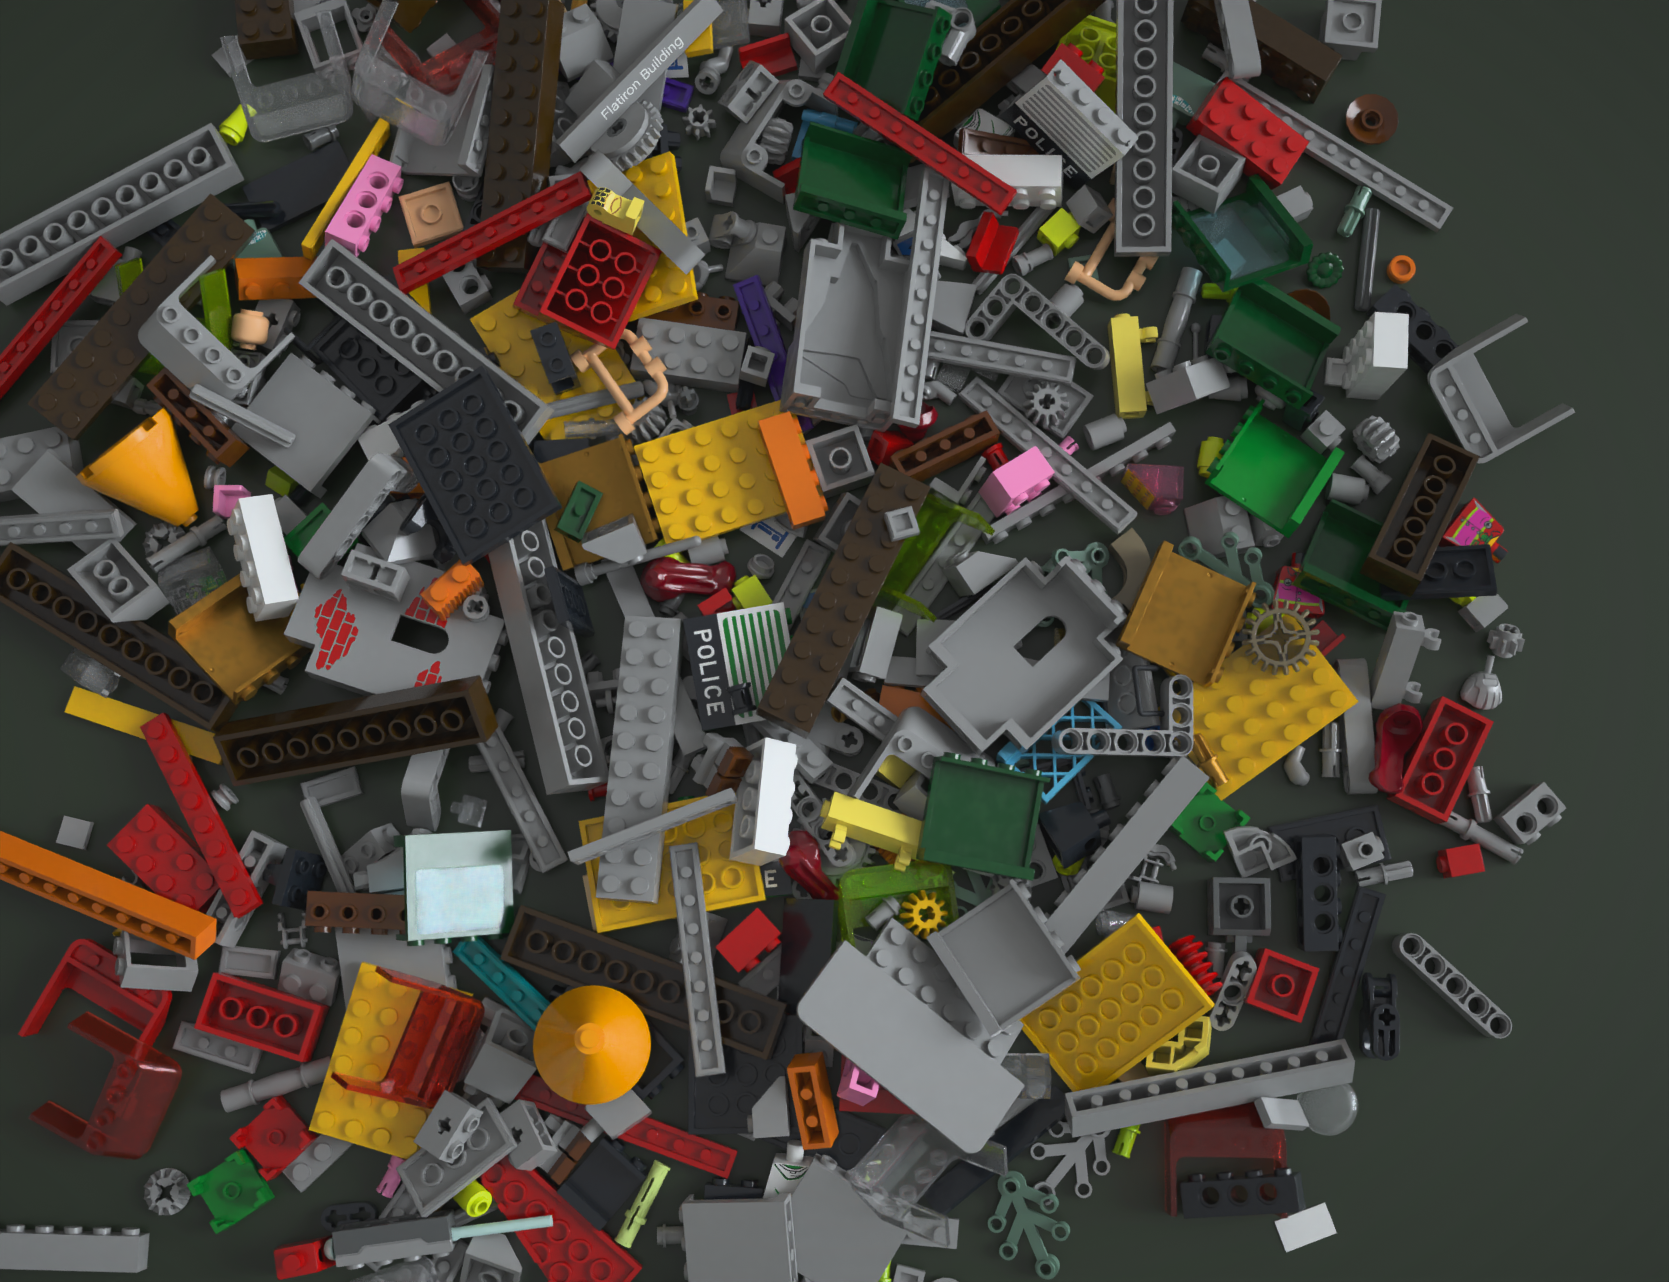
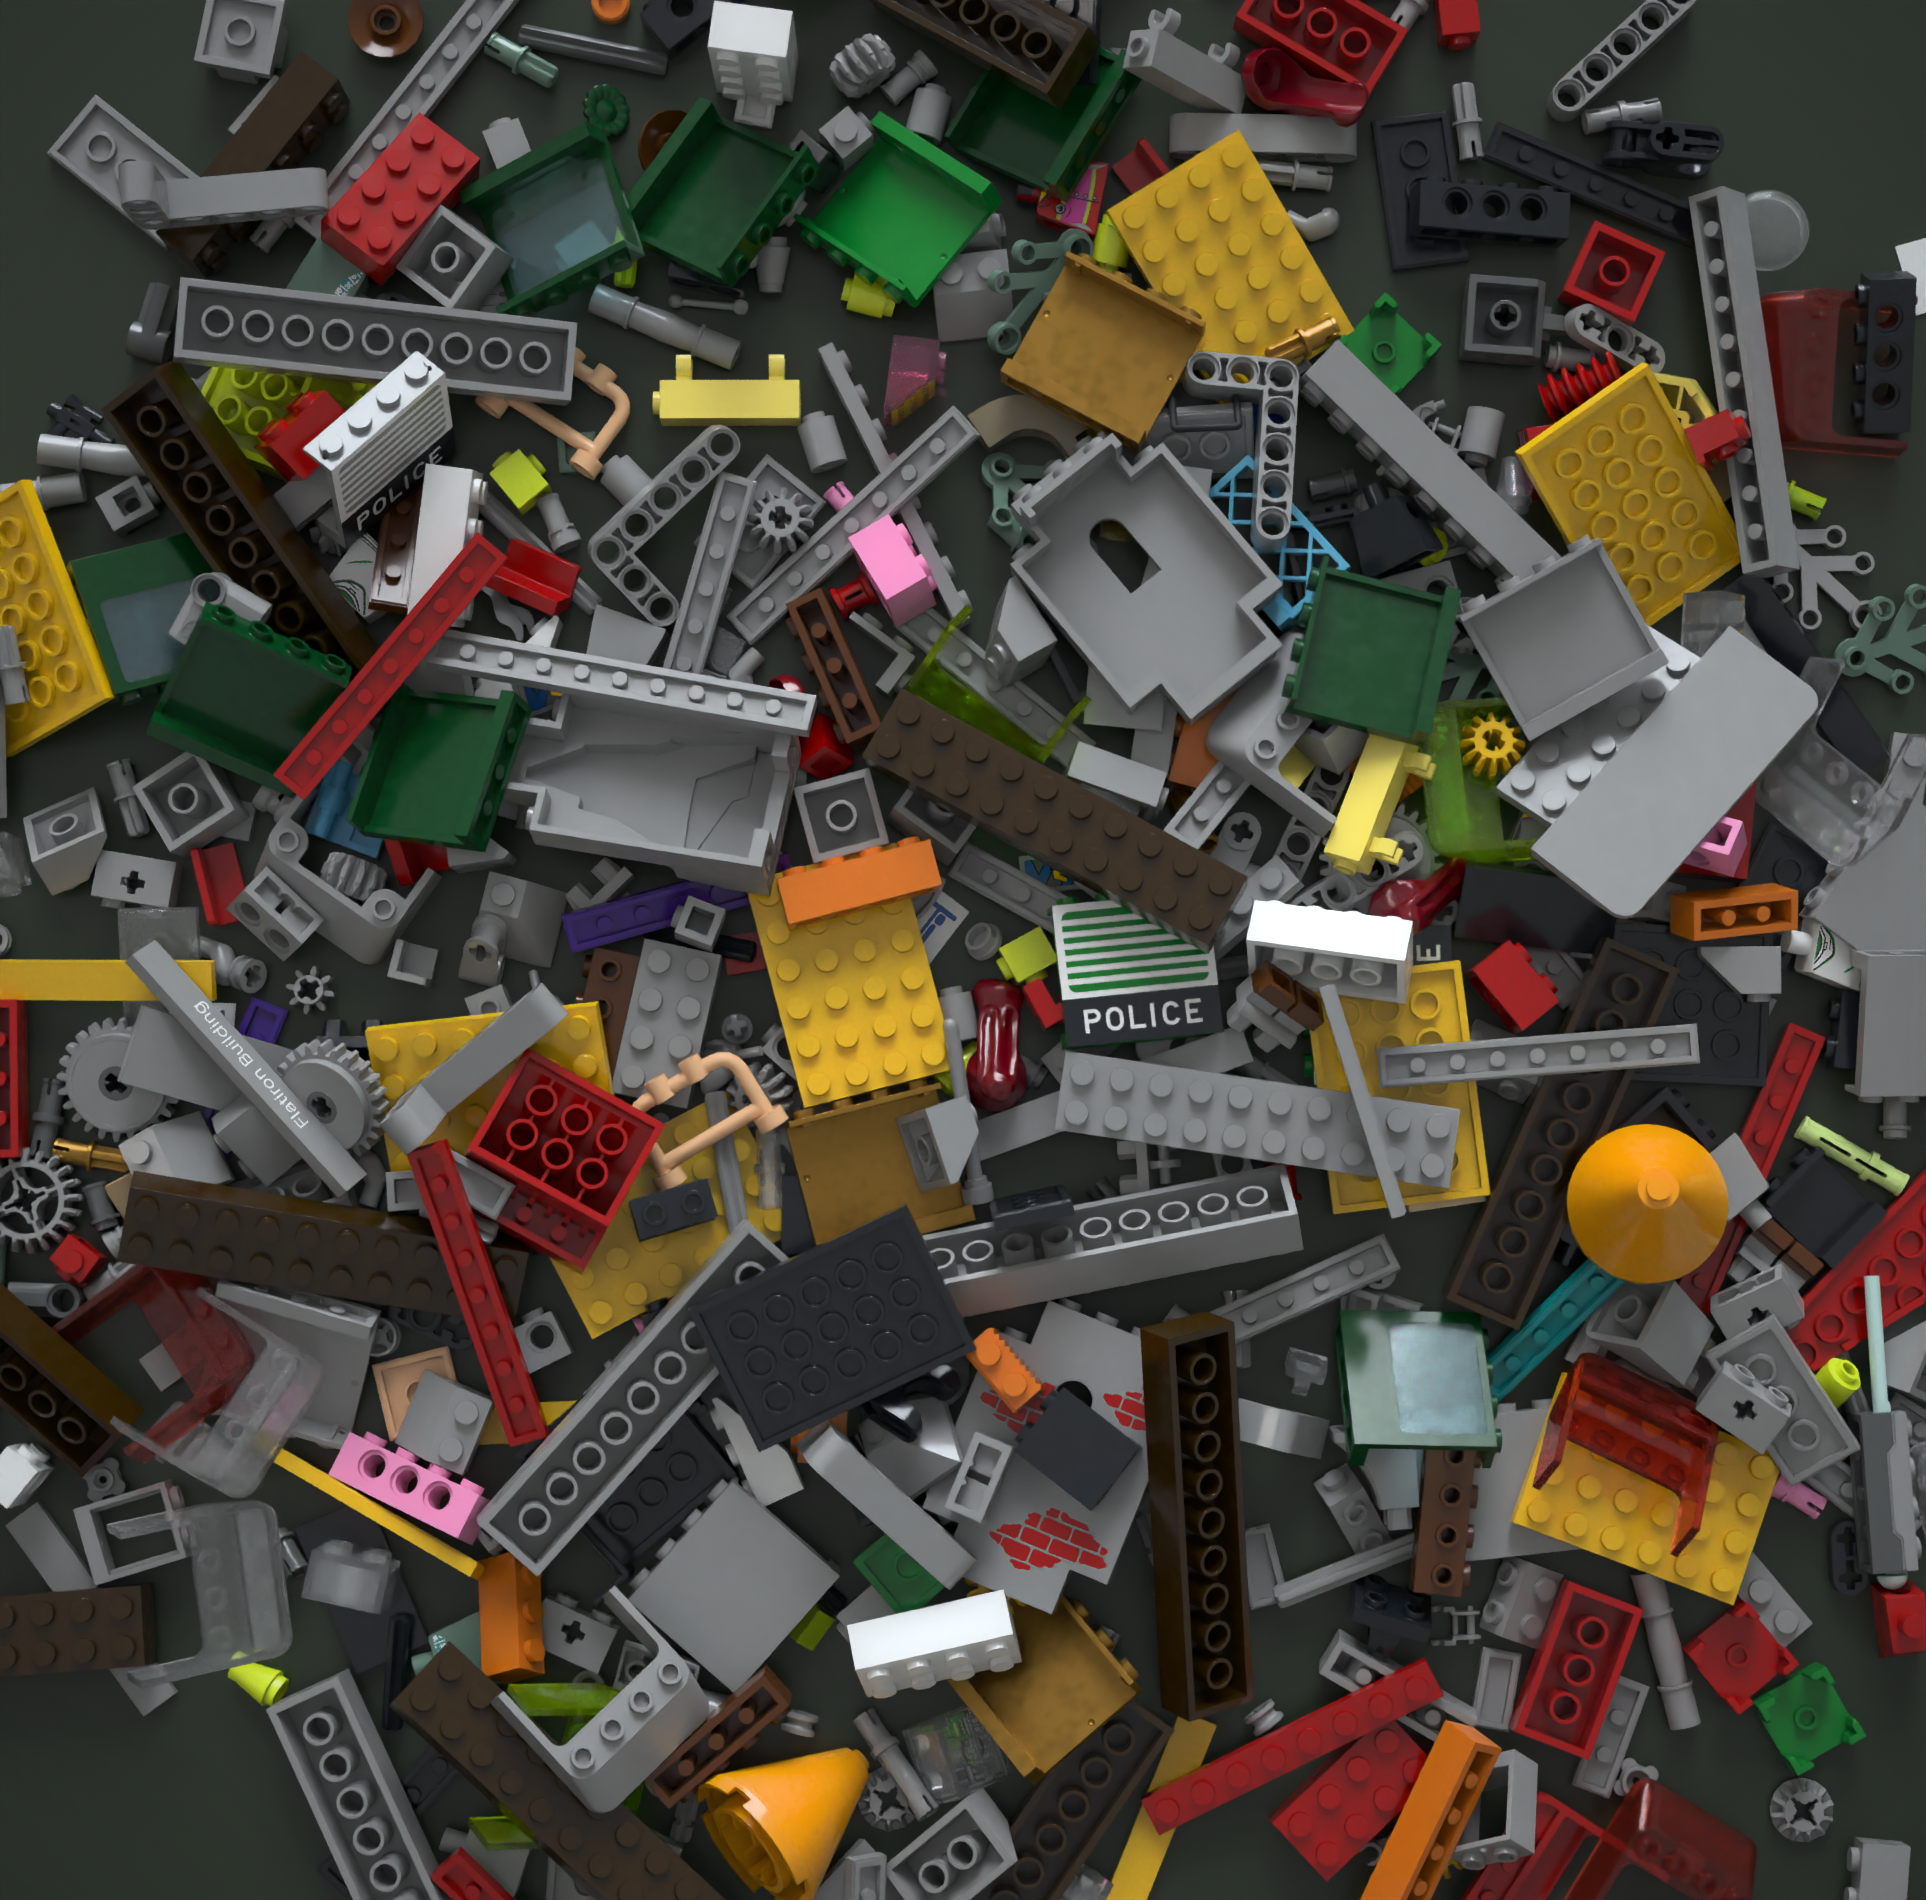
camera: 90 degrees left, 5 degrees up
(193, 1064) = (1630, 1770): none -> light grey plate
(226, 497) = (837, 1697): bright pink panel -> none
(242, 416) = (725, 1668): light grey axle -> none
(249, 329) = (588, 1658): light nougat head -> none
(301, 171) = (351, 1577): none -> clear brick
(397, 641) = (1076, 1447): none -> black panel
(408, 228) = (445, 1422): none -> light grey slope
(478, 600) = (1019, 1337): light grey bush -> none
(578, 511) = (890, 1188): dark green plate -> none
(615, 210) = (467, 1106): light yellow leg -> none
(741, 698) = (1186, 971): black bush -> none
(883, 912) = (1486, 800): light grey pin -> none
(901, 523) = (956, 730): light grey tile -> none
(1089, 209) = (492, 434): light grey brick -> none
(1163, 1066) = (1717, 438): none -> red brick
(1187, 383) = (770, 319): light grey brick -> none
(1257, 850) = (1426, 287): light grey brick -> none
(1281, 1113) = (1781, 291): light grey tile -> none
(1283, 656) = (1146, 207): dark tan gear -> none
(1361, 851) = (1438, 148): light grey brick -> none
(1404, 998) = (1644, 111): none -> light grey pin

